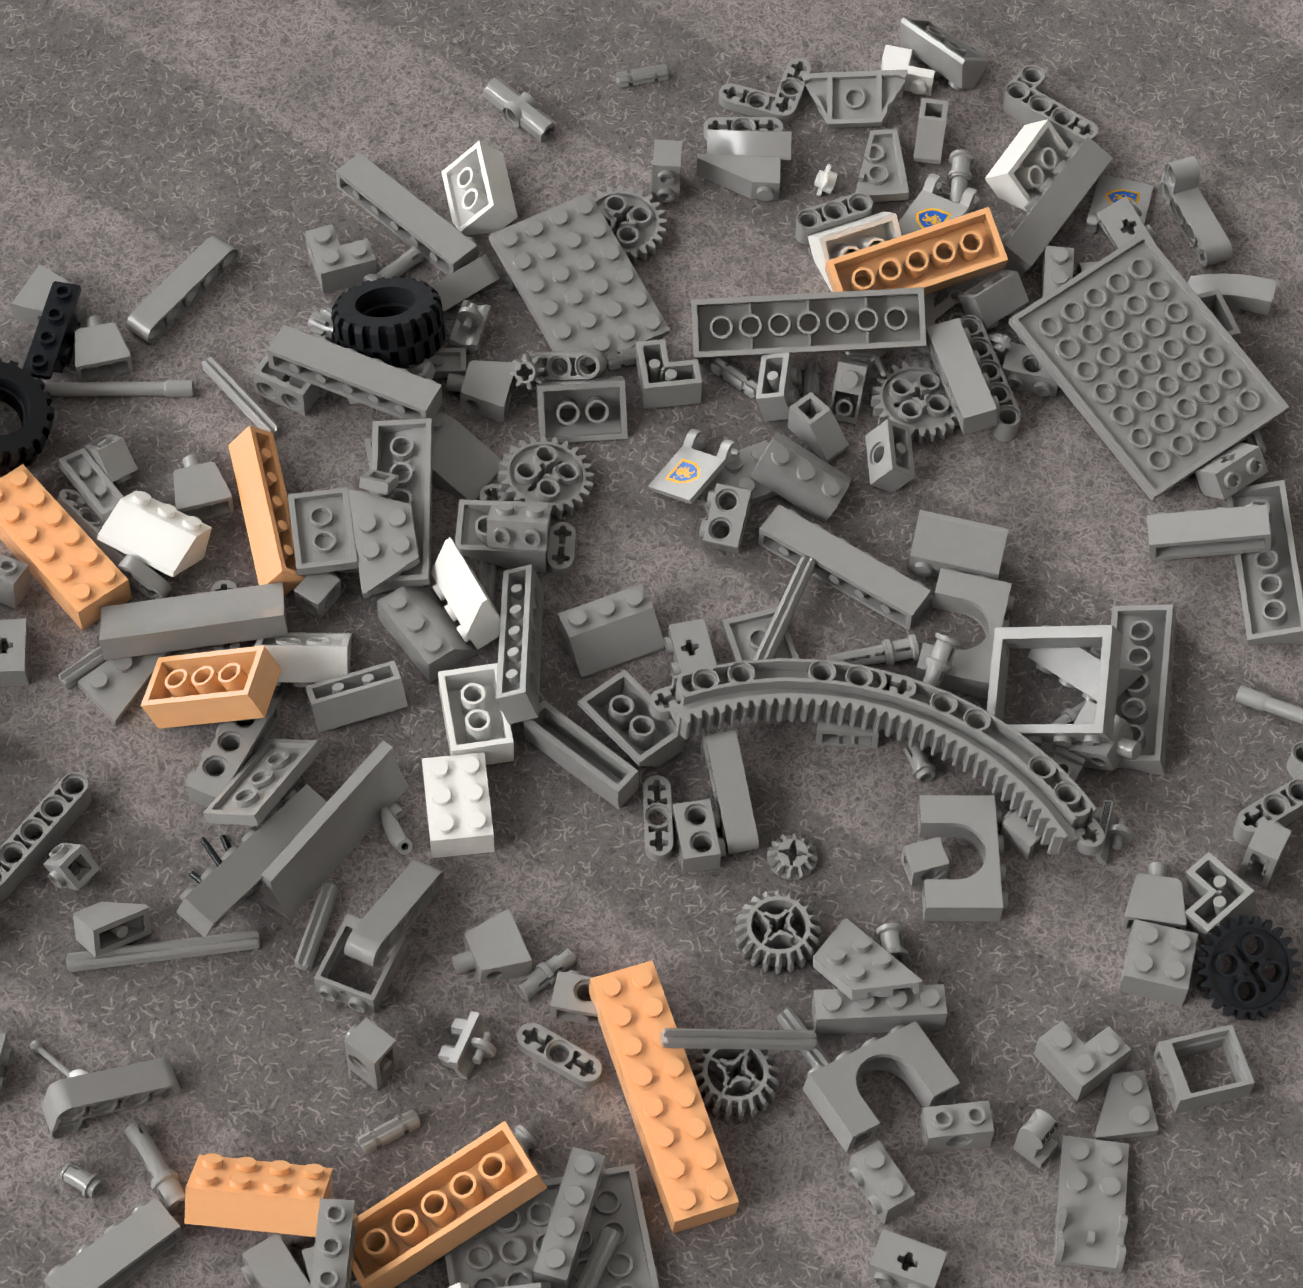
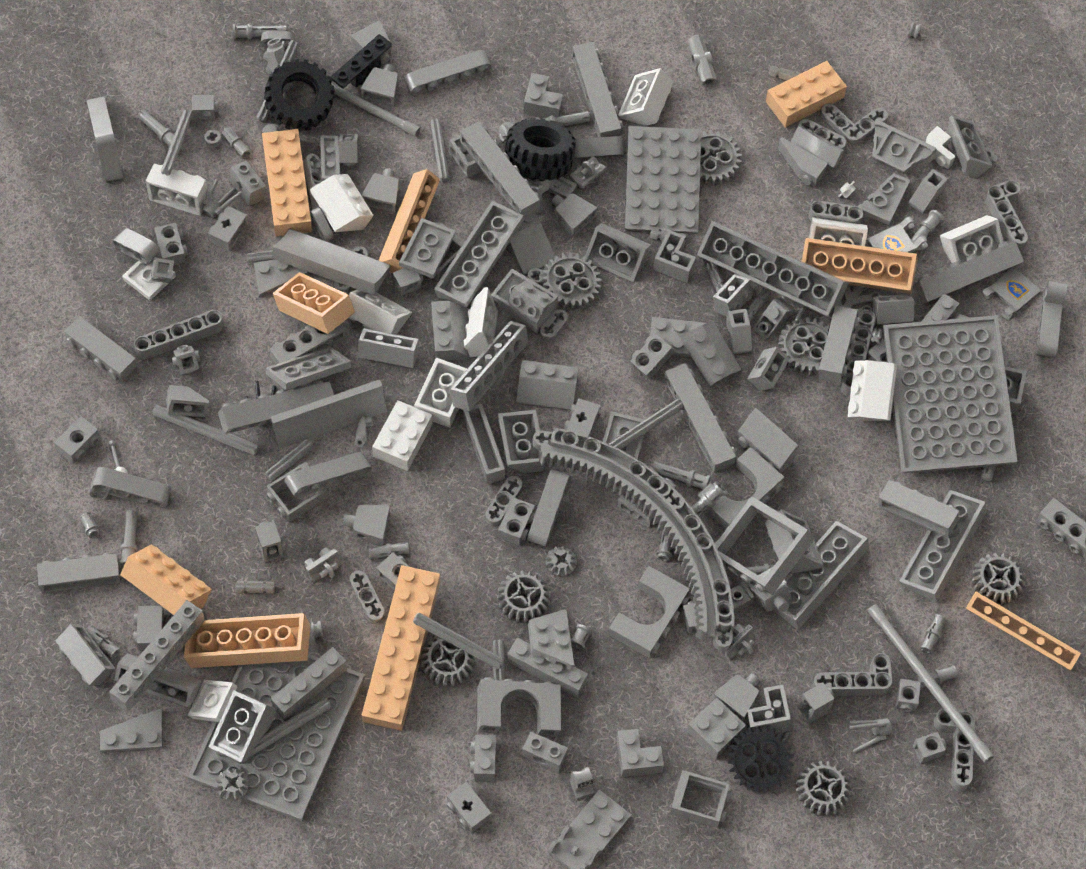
camera: 30 degrees right, 5 degrees up
(378, 482) = (471, 236): light grey plate -> none
(383, 539) = (455, 269): light grey wing -> none
(529, 363) = (598, 215): light grey gear -> none
(575, 361) = (614, 222): light grey beam -> none
(666, 170) = (756, 138): light grey brick -> none
(687, 86) = (805, 93): none -> light nougat brick
(691, 469) = (654, 317): flag -> none
(926, 861) = (629, 603): light grey brick -> none
(1048, 411) = (872, 390): none -> white slope
(1116, 216) = (1002, 297): light grey brick -> none
(1127, 1108) = (644, 795): light grey wing -> none
(1231, 471) = (959, 480): light grey brick -> none
(1238, 290) = (1040, 377): light grey slope -> none

